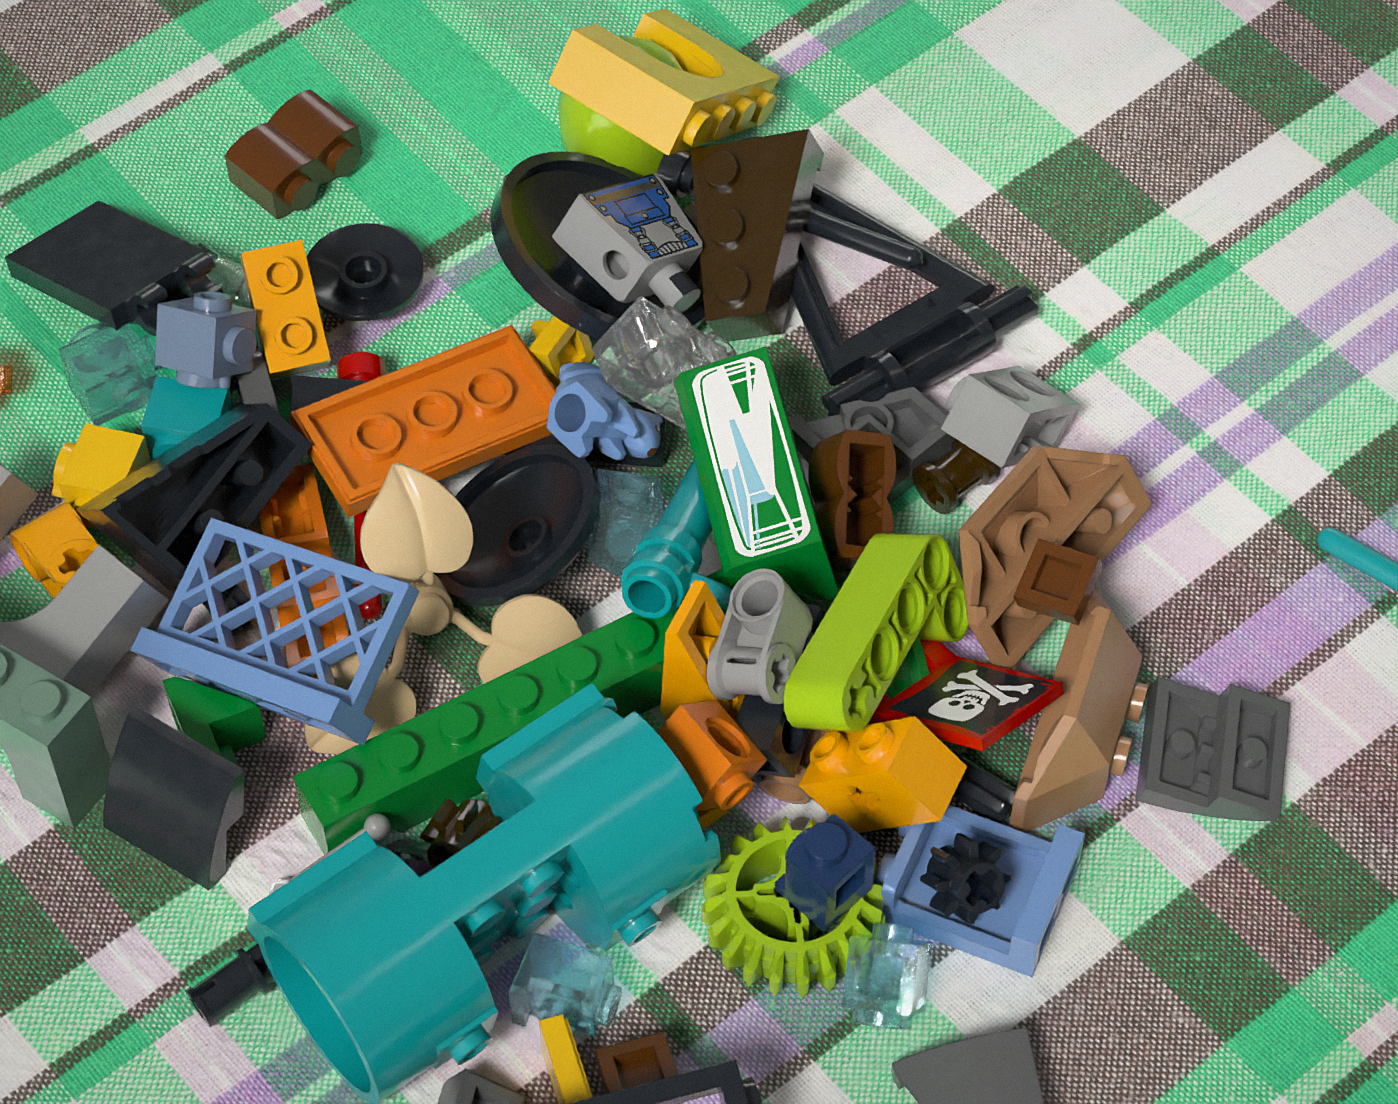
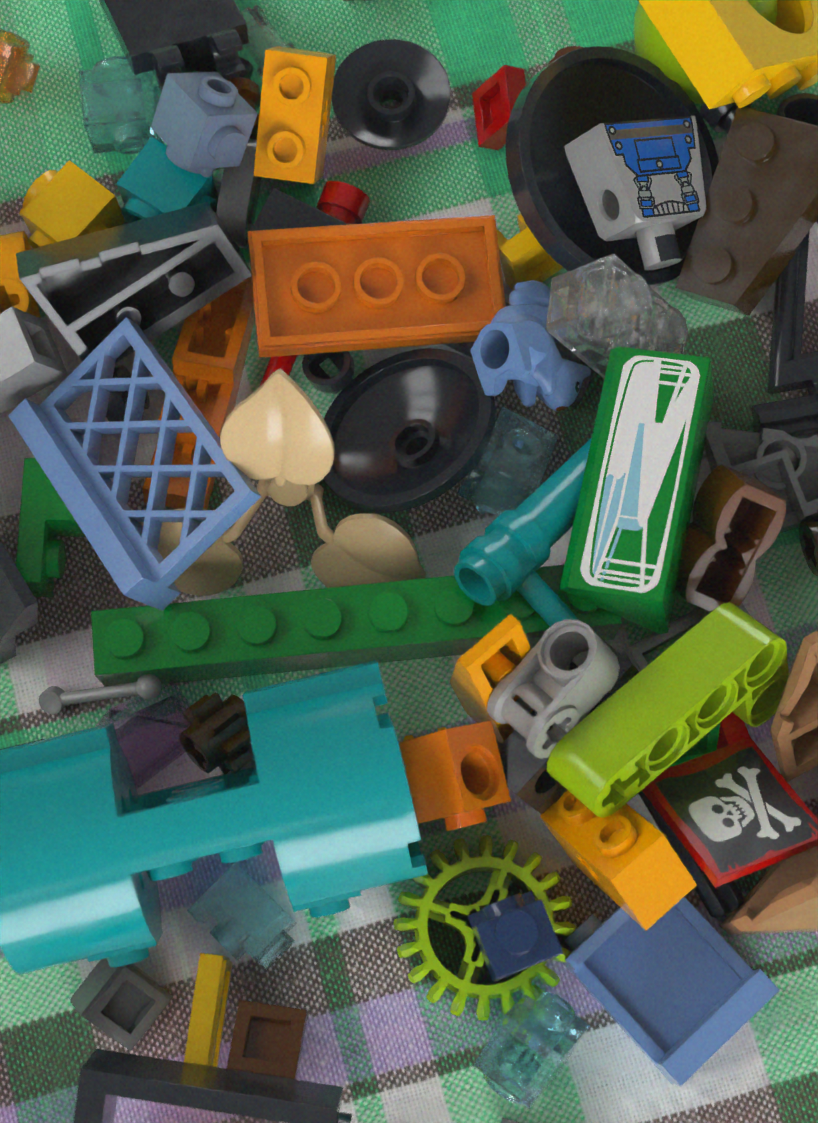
camera: 25 degrees right, 20 degrees up
(470, 248) = (494, 104): none -> red tile
(965, 878) = (649, 979): black gear -> none

